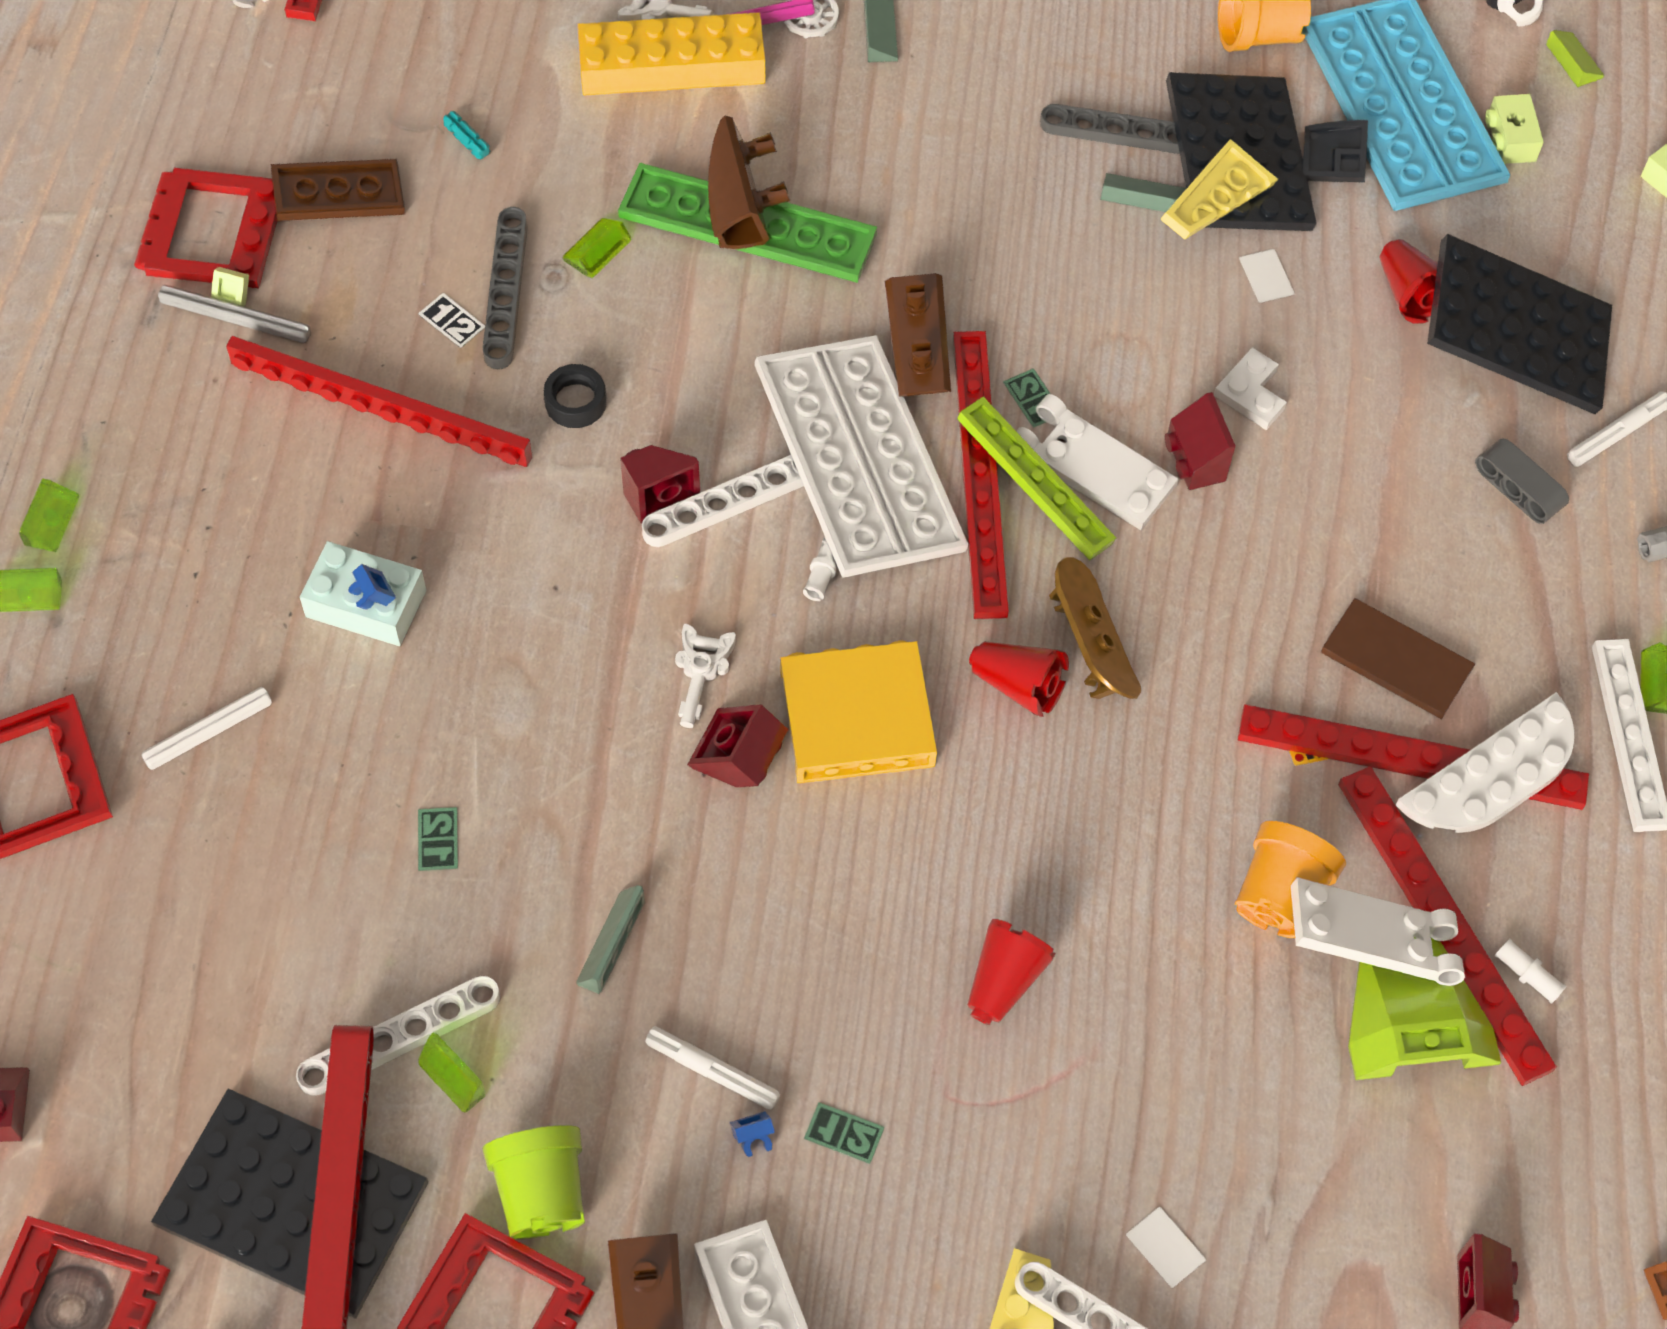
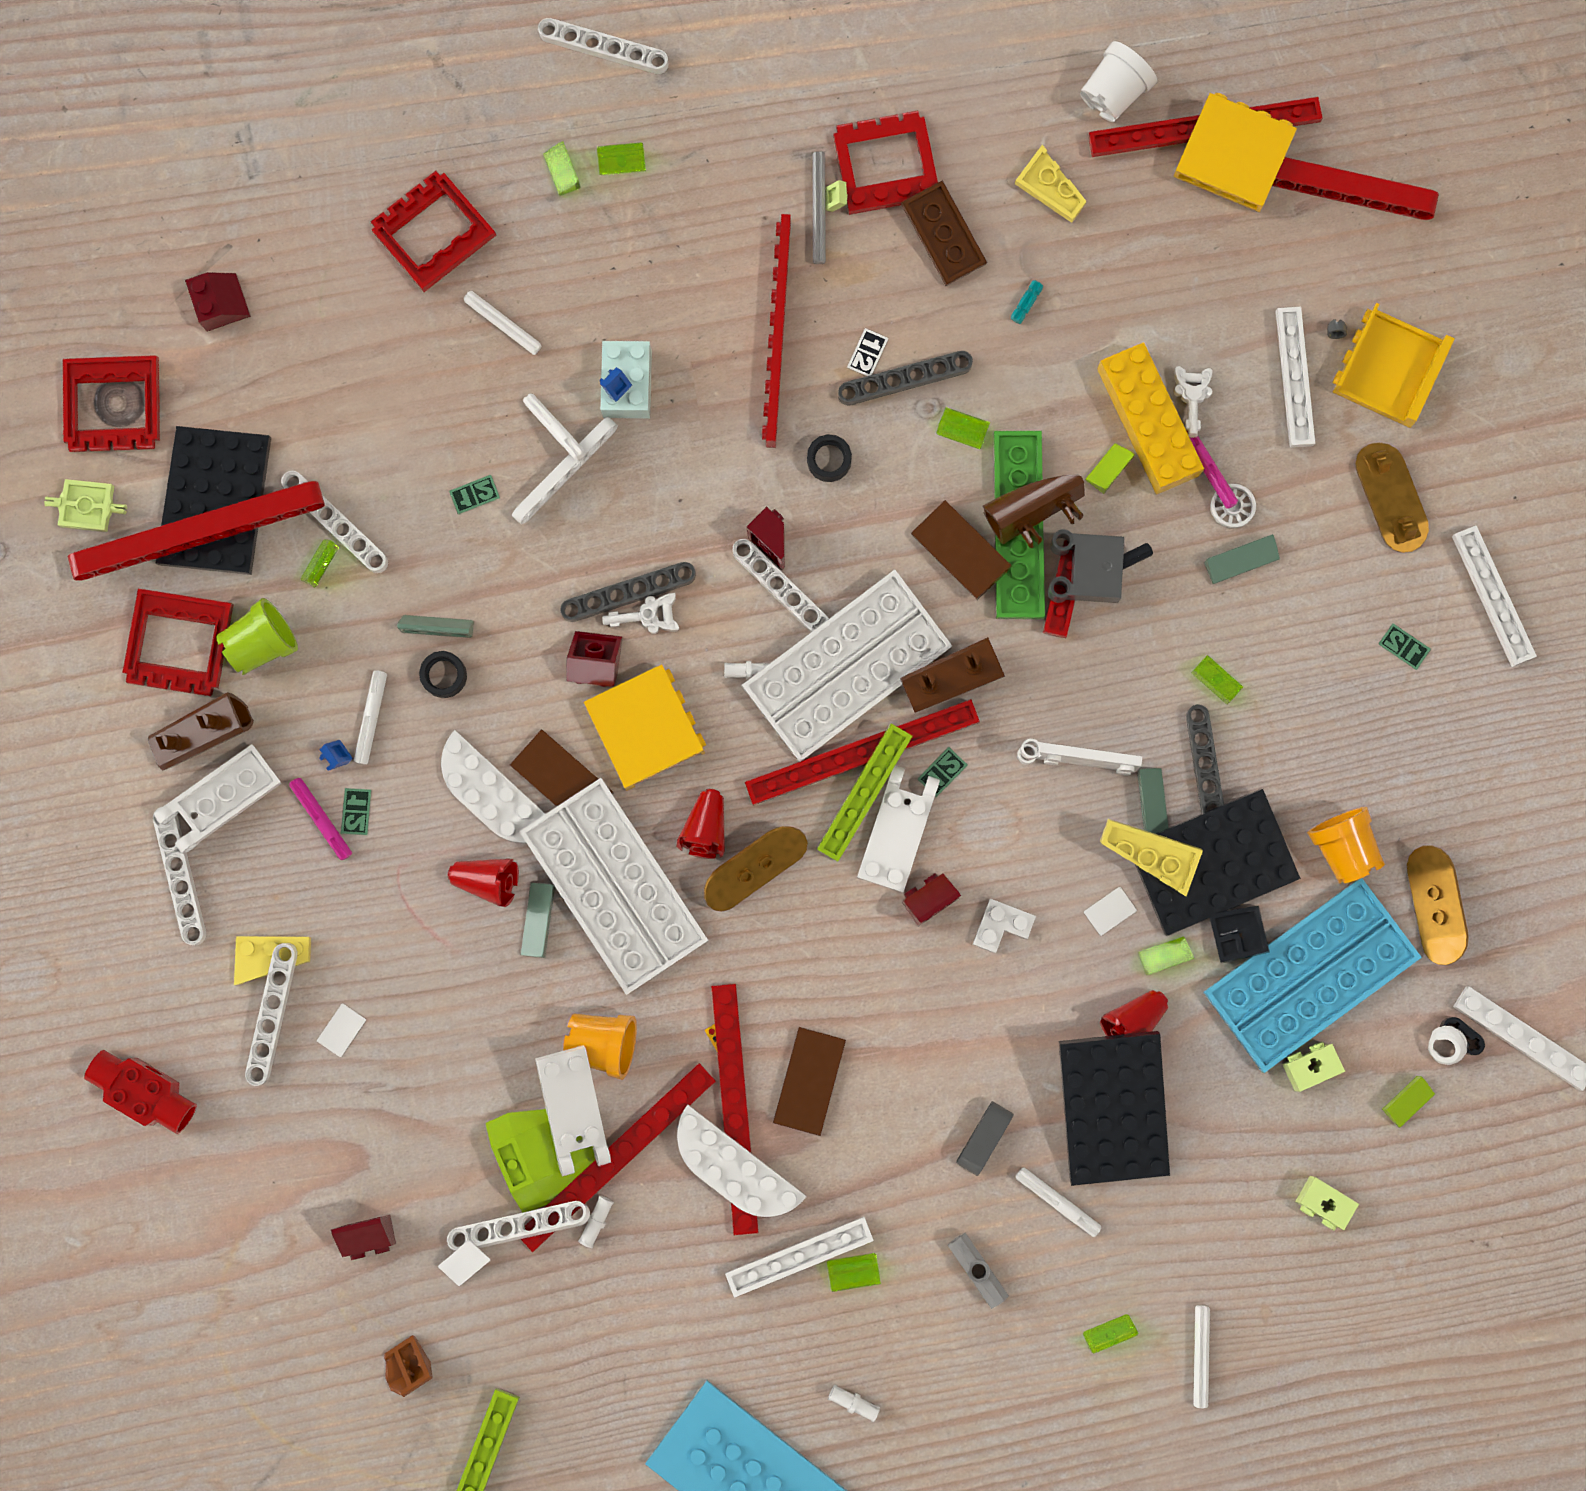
camera: 80 degrees right, 20 degrees up
(328, 71) = (1050, 186): none -> light yellow wing
(390, 696) = (554, 427): none -> white axle
(457, 708) = (563, 471): none -> white beam
(659, 681) = (627, 588): none -> dark grey beam
(680, 922) = (427, 664): none -> black tyre
(710, 106) = (1109, 467): none -> lime slope
(756, 287) = (961, 550): none -> reddish brown tile
(837, 151) = (1096, 566): none -> dark grey piece
(840, 1182) = (320, 819): none -> dark pink axle
(848, 199) = (1060, 614): none -> red plate
(881, 937) = (486, 790): none -> white plate
(891, 840) = (552, 769): none -> reddish brown tile
(1017, 88) = (1217, 679): none -> clear neon green slope
(1065, 812) = (613, 886): none -> white plate
(1067, 238) = (1054, 753): none -> white hinge
(1083, 925) = (537, 920): none -> slope
(1340, 233) = (1165, 955): none -> clear neon green slope
(1514, 1068) = (517, 1222): none -> white beam
(1554, 1162) = (464, 1263): none -> white sticker

